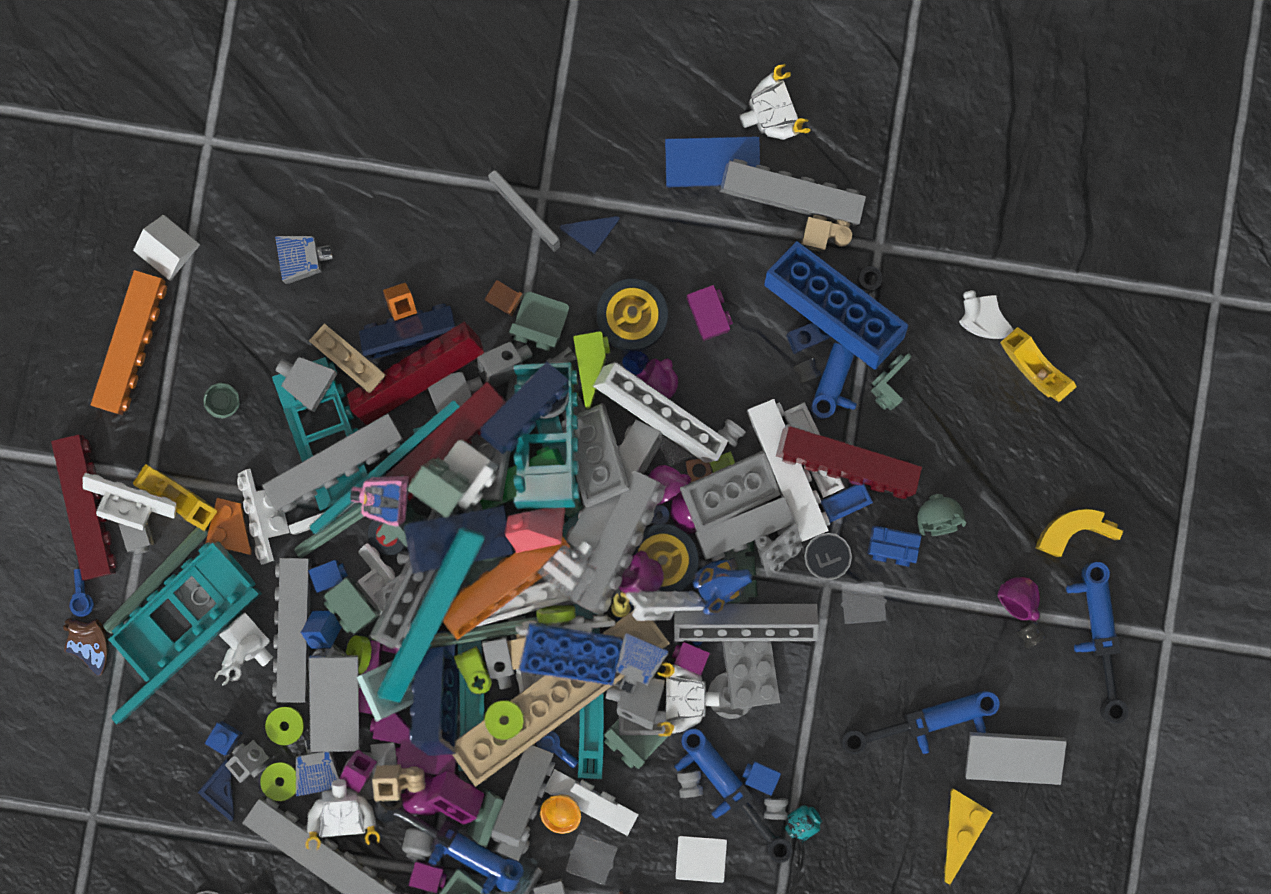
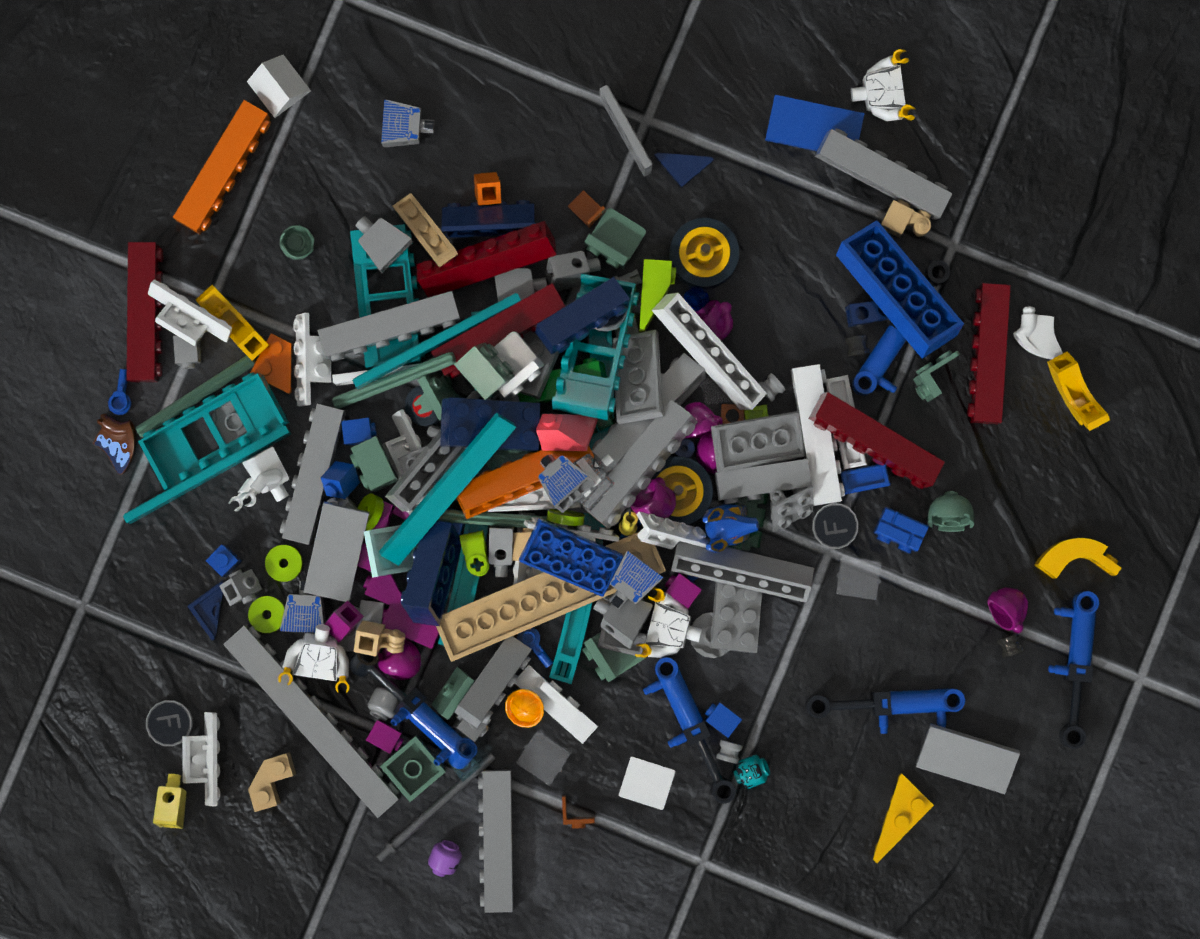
camera: 15 degrees right, 0 degrees up
(383, 499) = (429, 369): torso -> none
(455, 797) = (429, 668): magenta brick -> none
(500, 730) = (482, 602): lime piece -> none
(545, 580) = (563, 481): none -> light grey torso
(689, 782) = (653, 709): light grey wheel -> none
(709, 313) = (777, 269): magenta brick -> none
(941, 347) = (990, 353): none -> dark red brick

